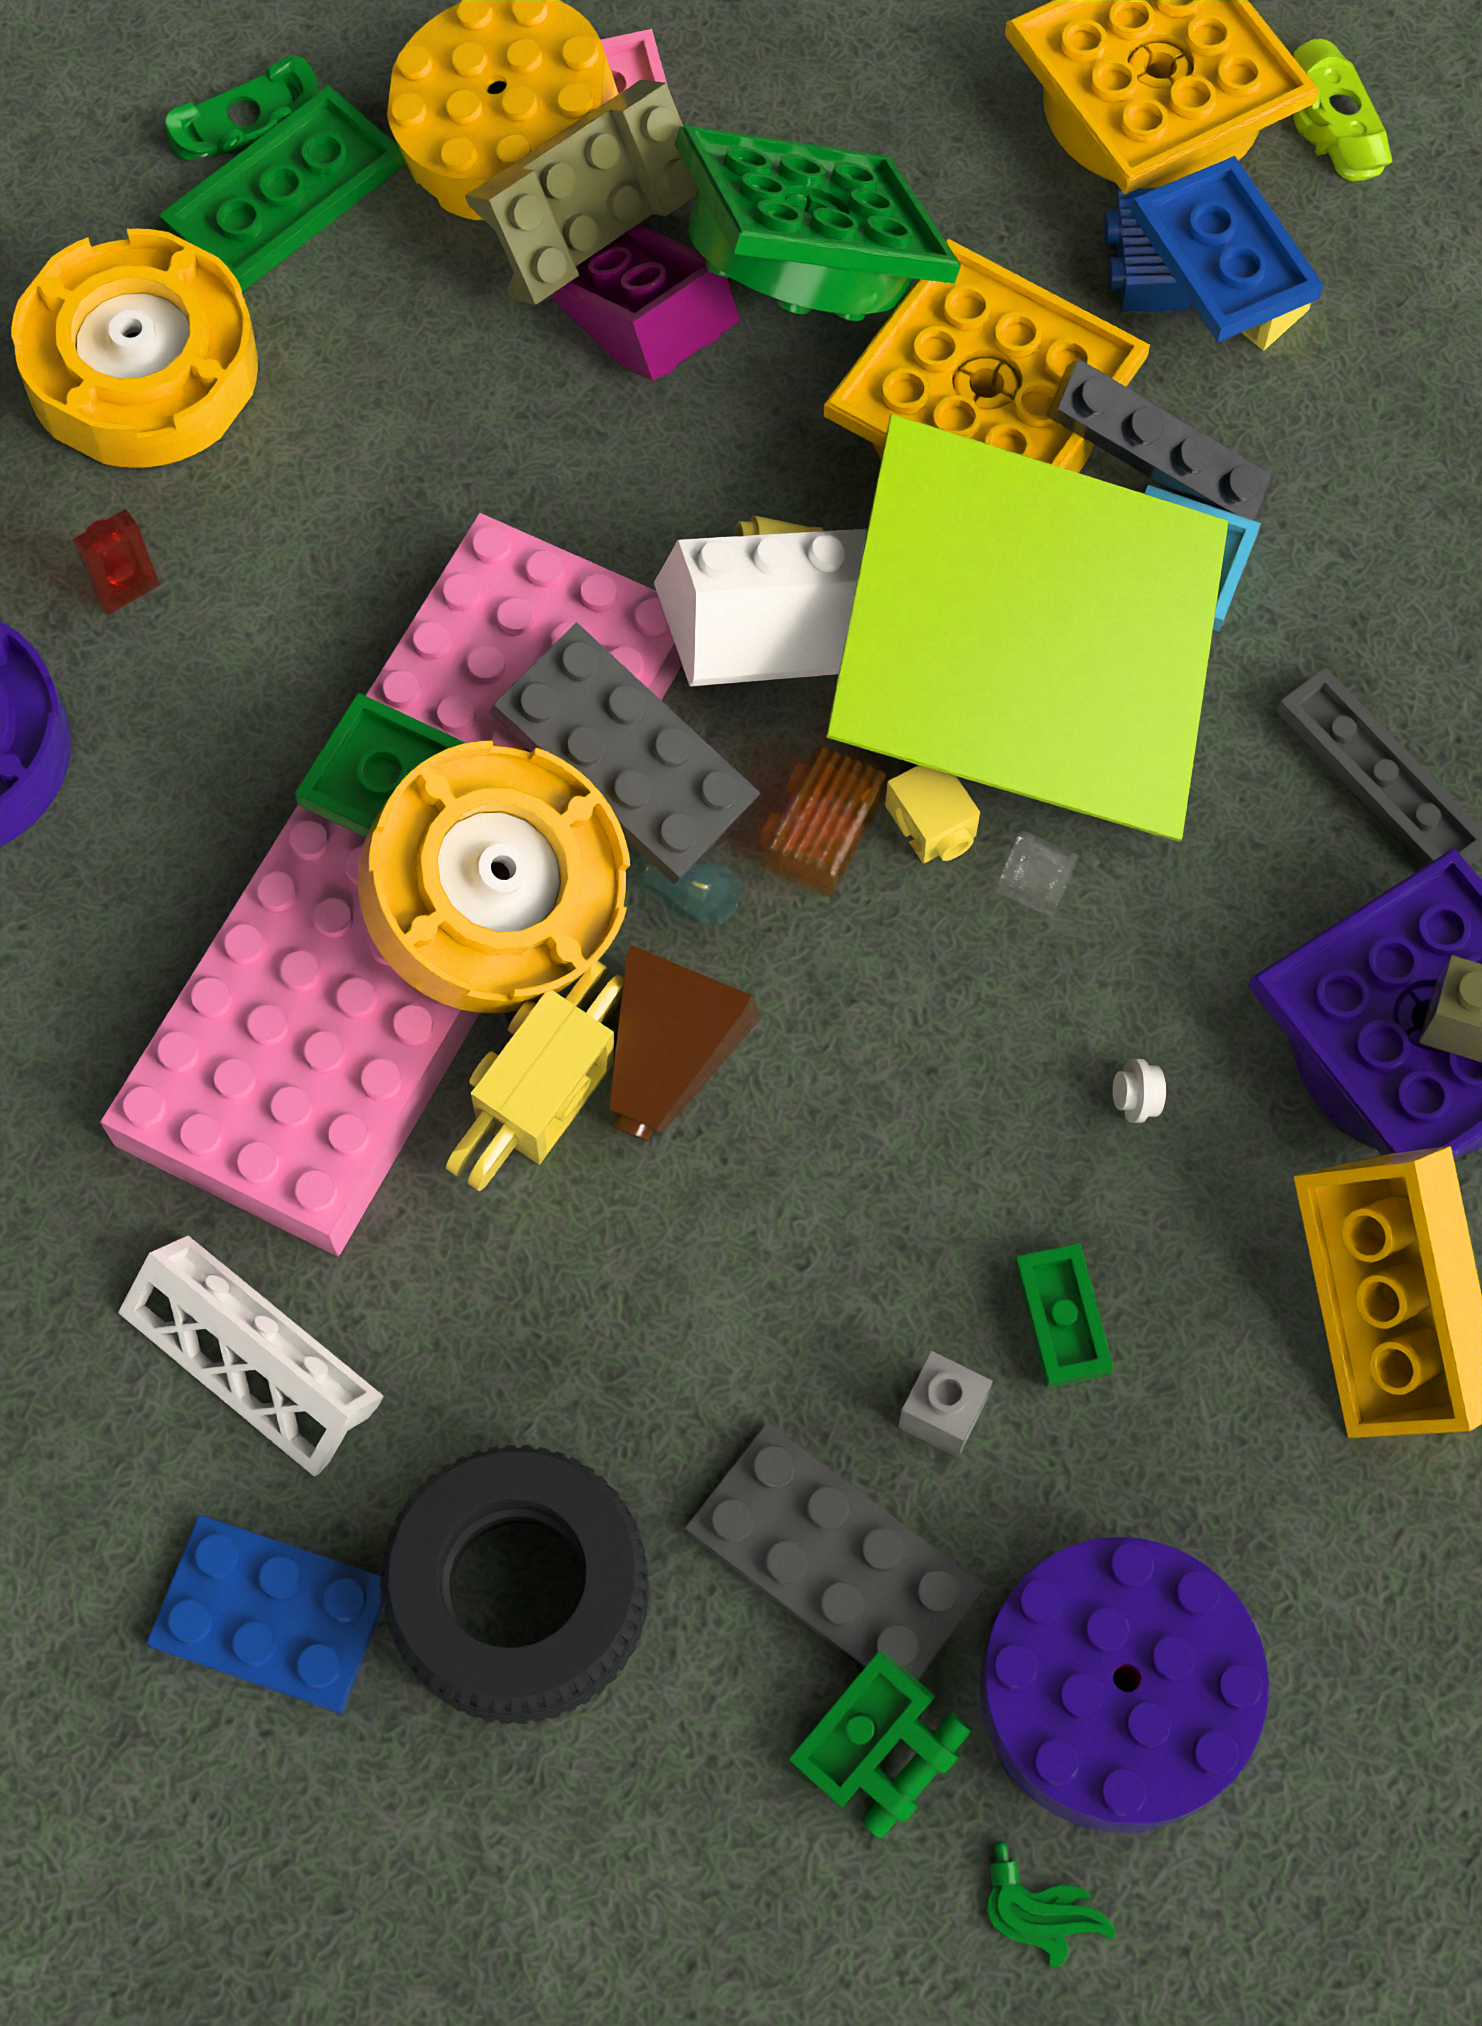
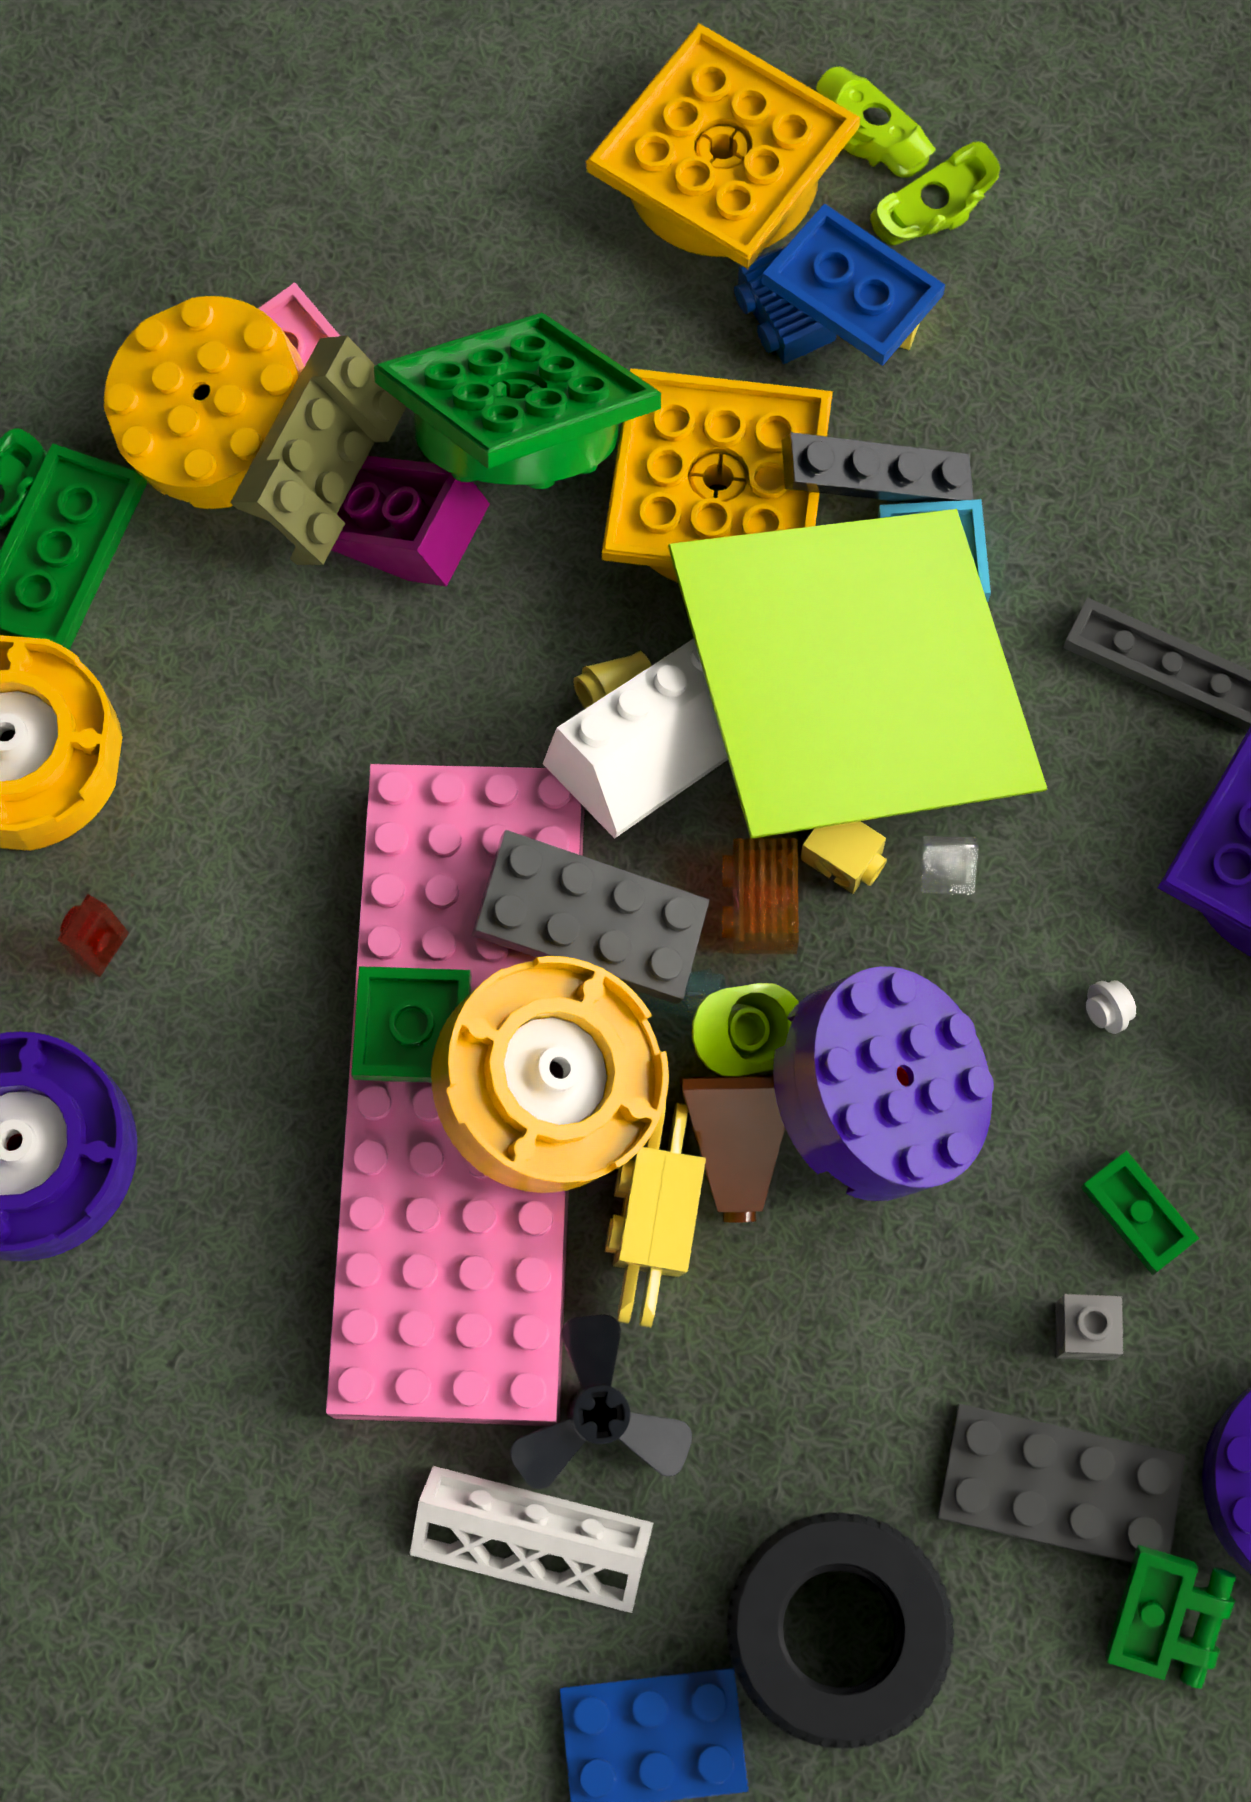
camera: 20 degrees left, 5 degrees up
(308, 1266) = (593, 1350): none -> black piece
(733, 935) = (742, 1027): none -> lime piece
(844, 1047) = (883, 1084): none -> piece
(1407, 201) = (963, 177): none -> lime piece

